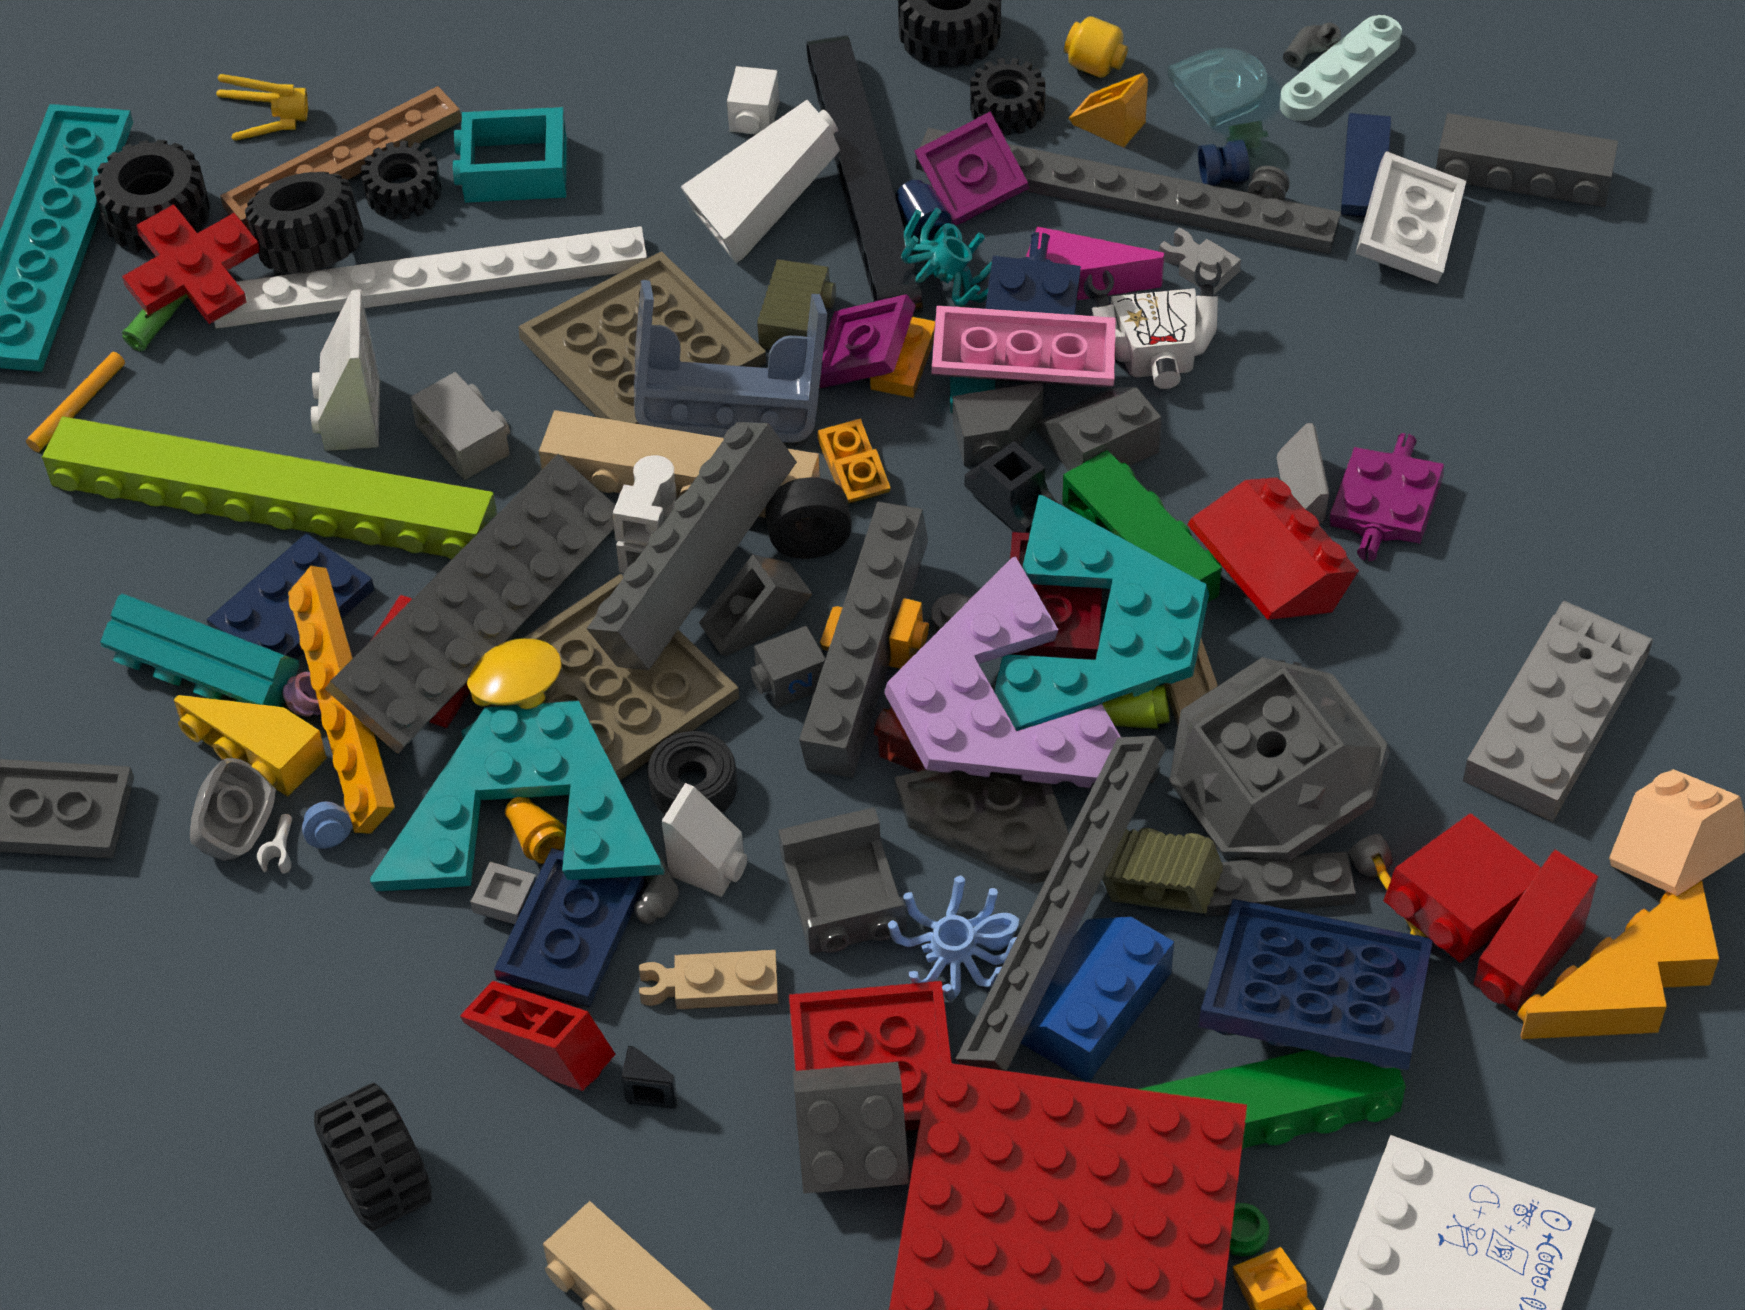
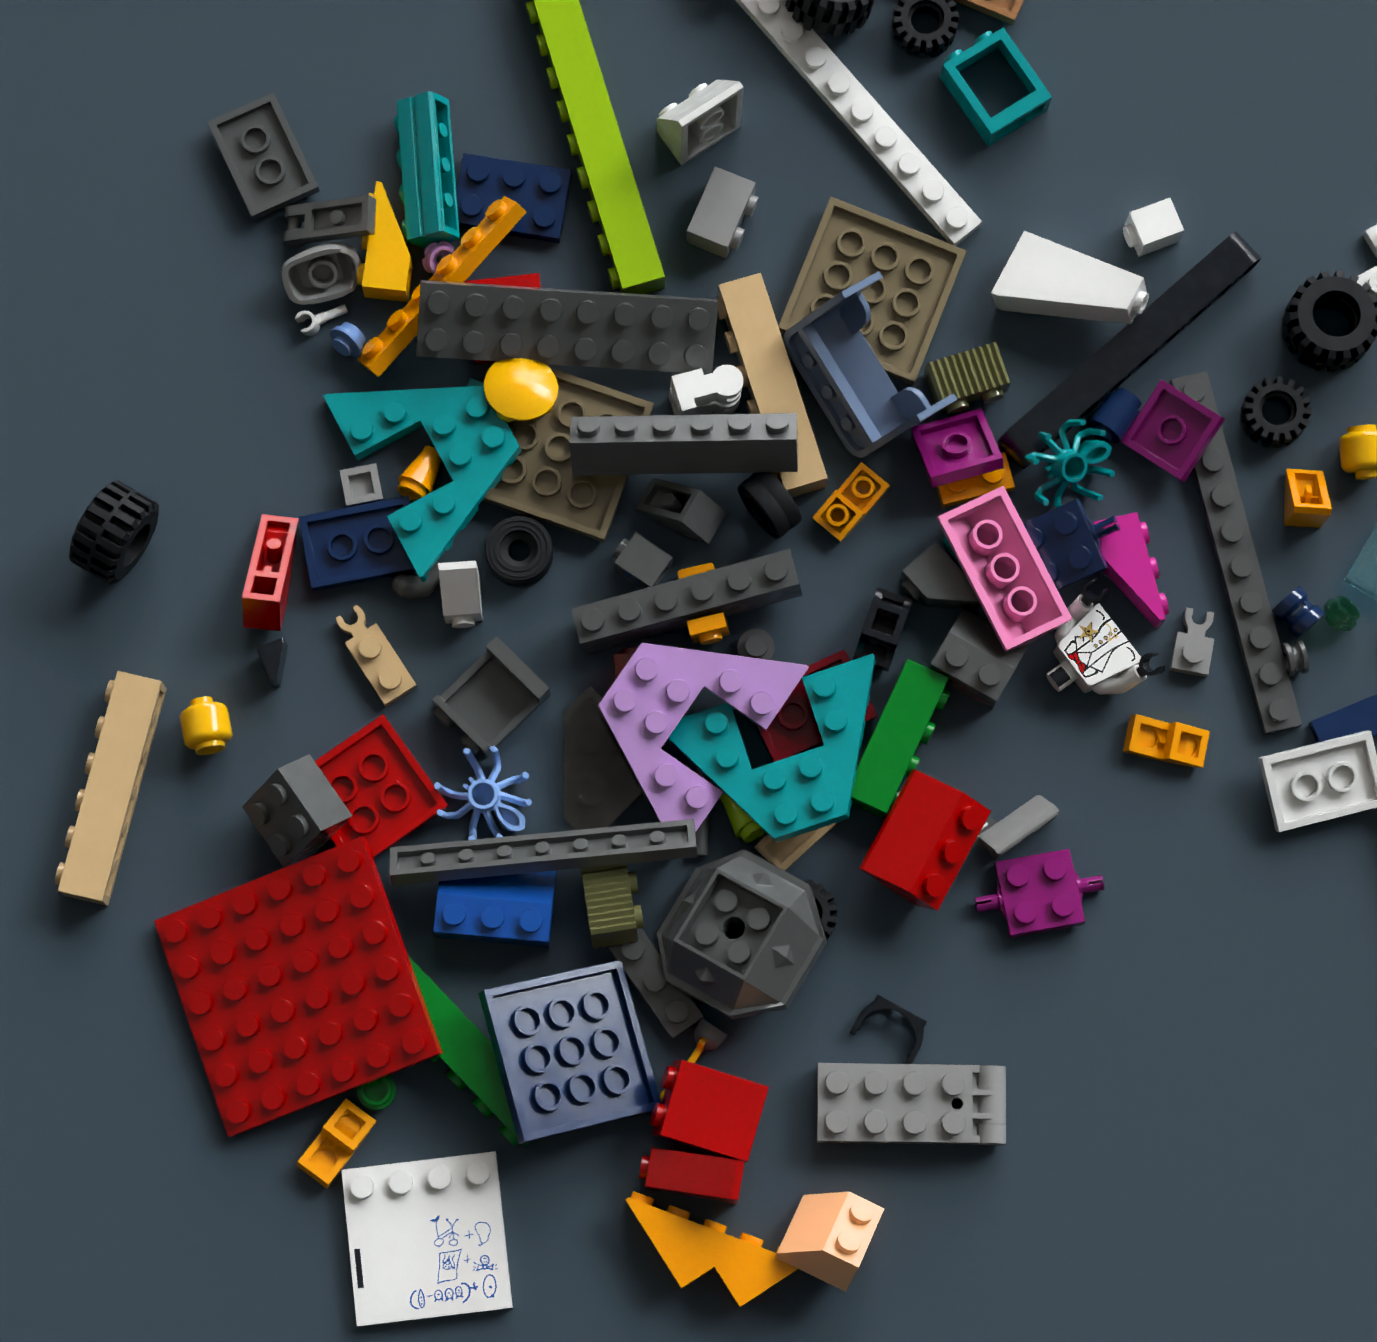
camera: 55 degrees right, 25 degrees up
(178, 769) = (329, 220): none -> dark grey plate
(675, 1189) = (206, 726): none -> yellow head
(1291, 323) = (1166, 741): none -> light orange slope
(1464, 664) = (917, 1023): none -> black cap

